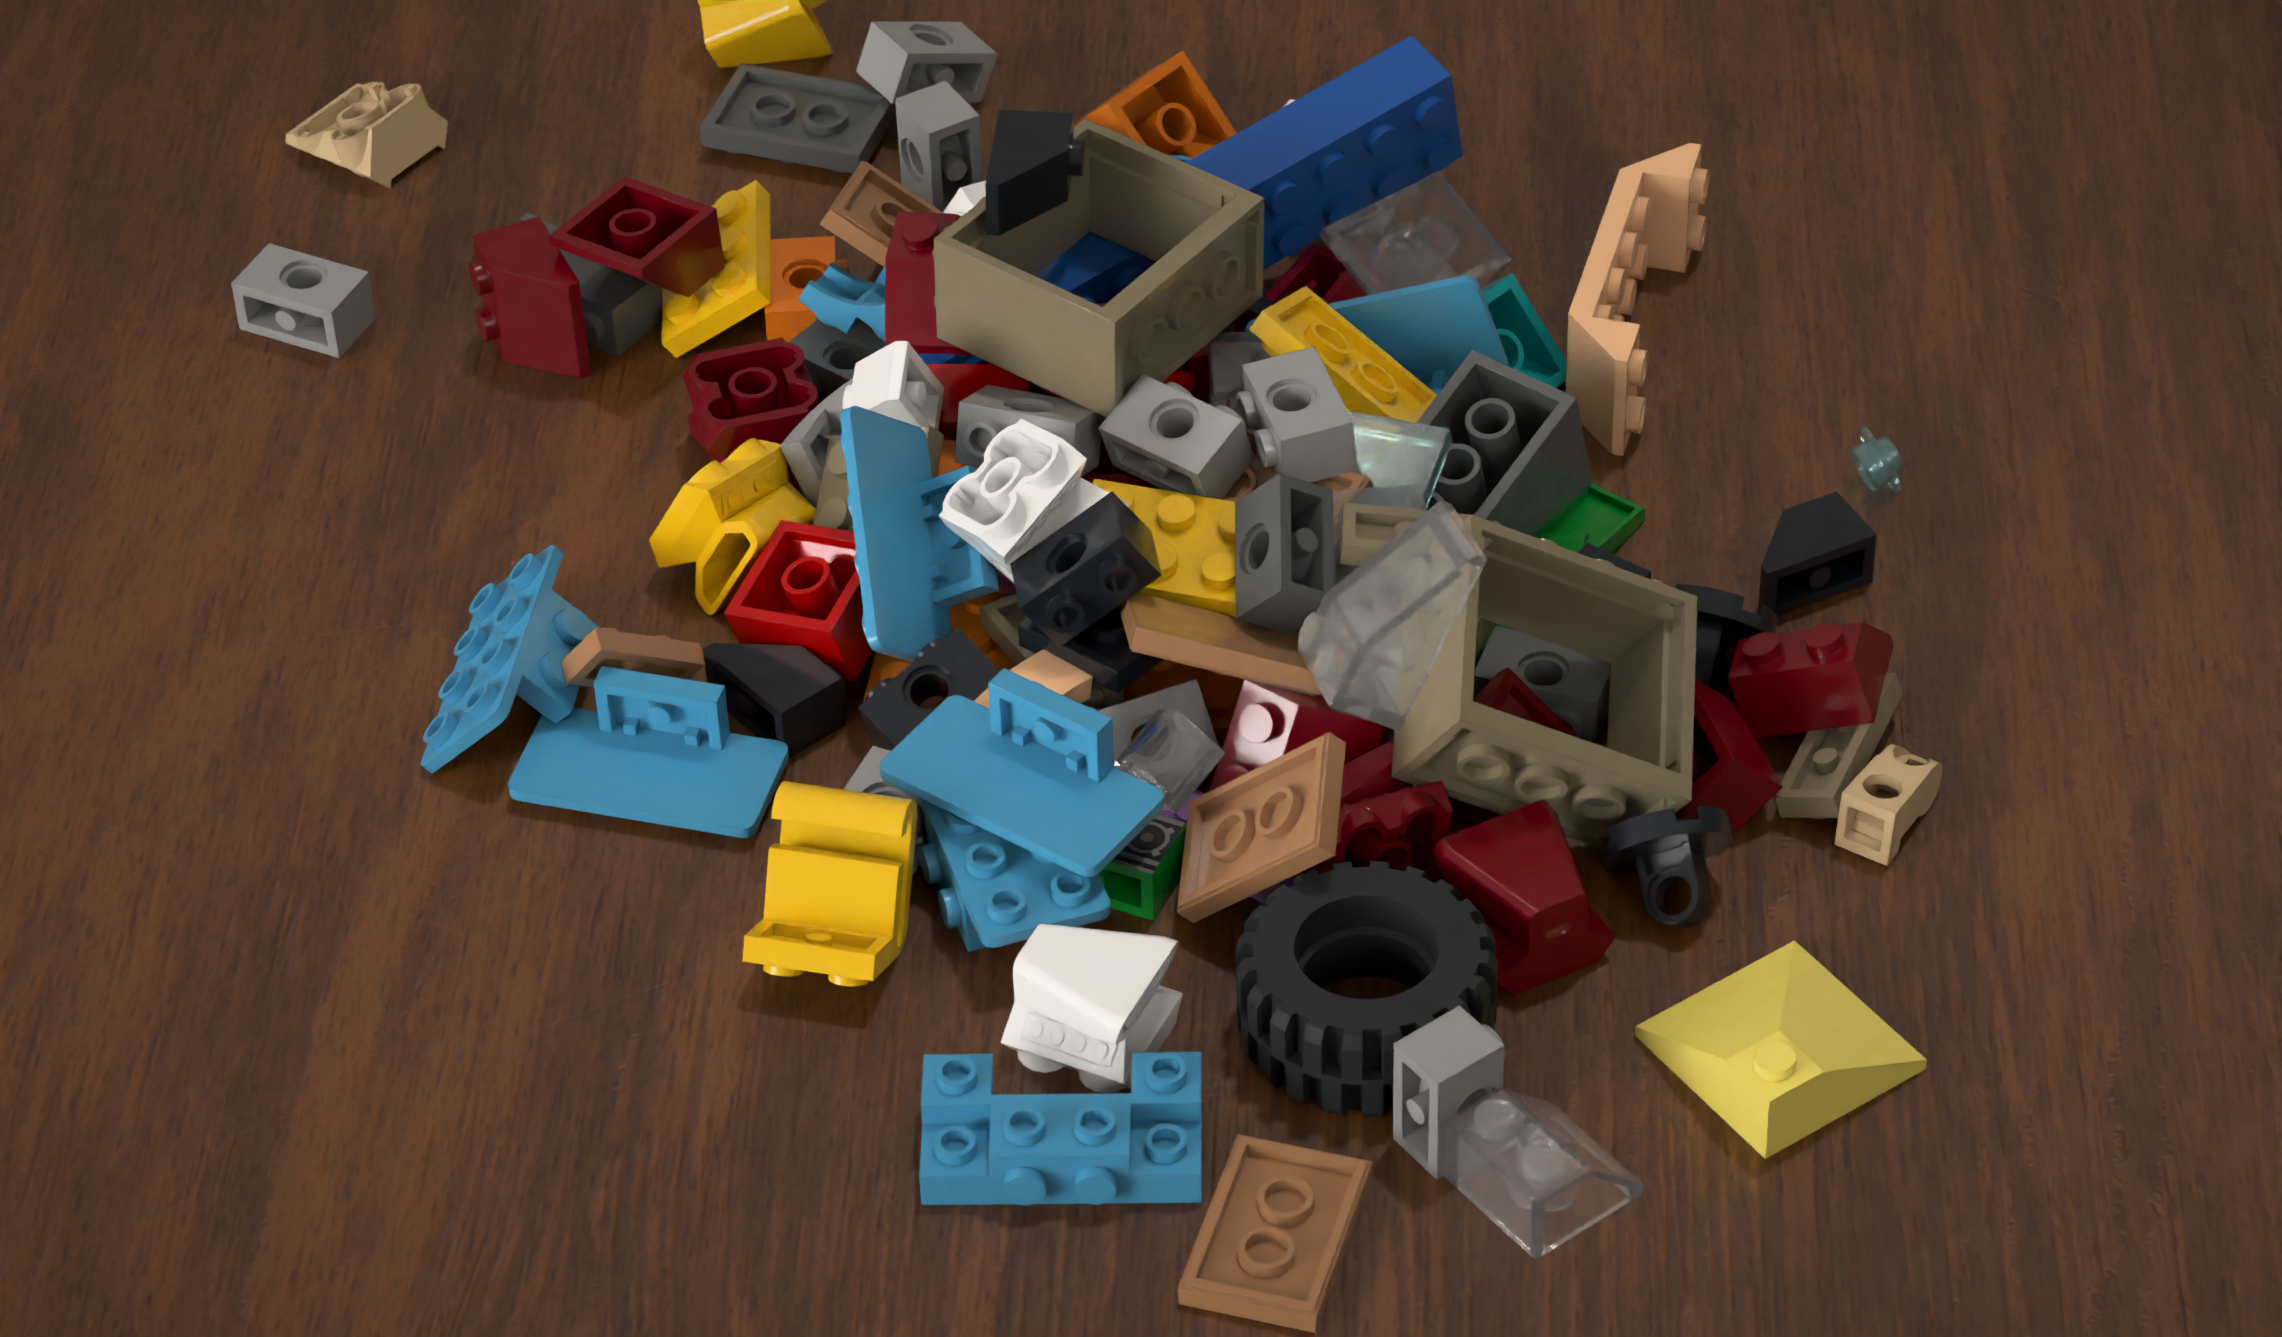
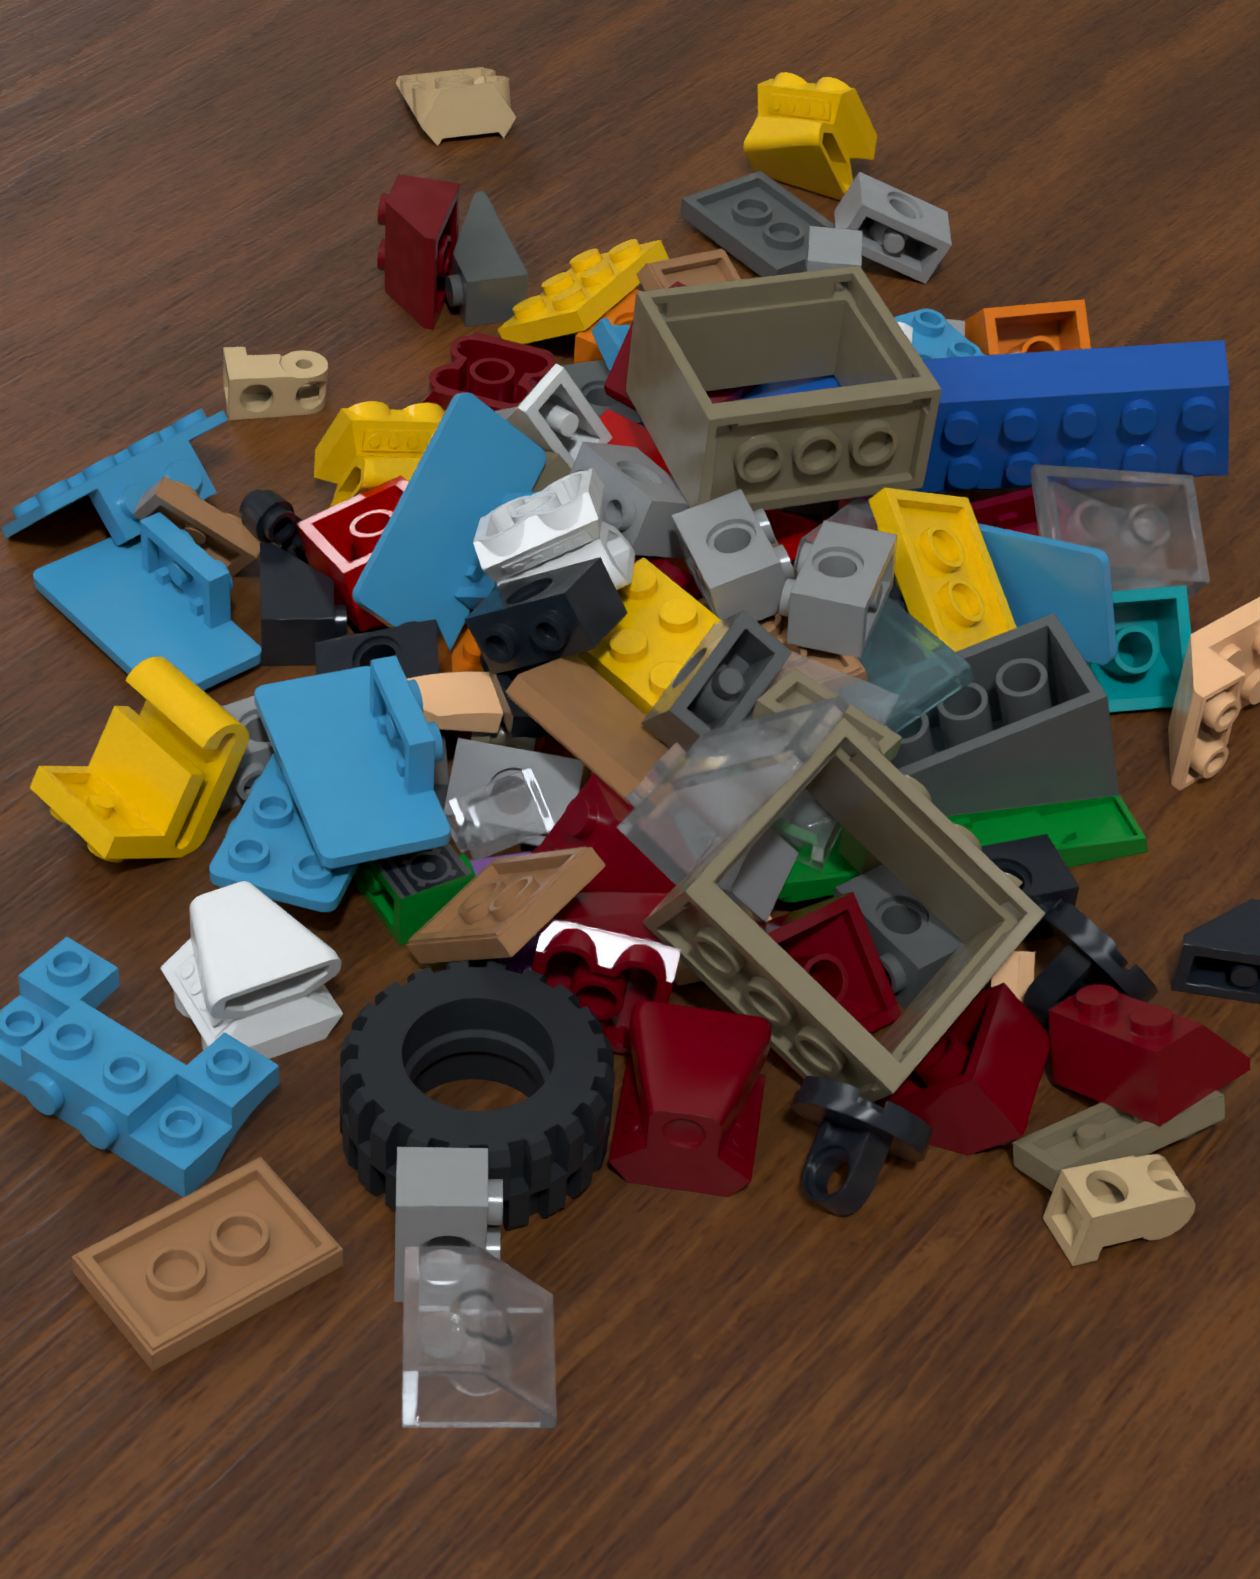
camera: 30 degrees right, 0 degrees up
(304, 300) = (282, 181): light grey brick -> none
(518, 503) = (273, 384): none -> tan leg
(647, 236) = (515, 234): dark red slope -> none
(697, 621) = (272, 521): none -> black plate
(1030, 167) = (752, 270): black slope -> none
(1780, 1049) = (809, 1374): light yellow slope -> none

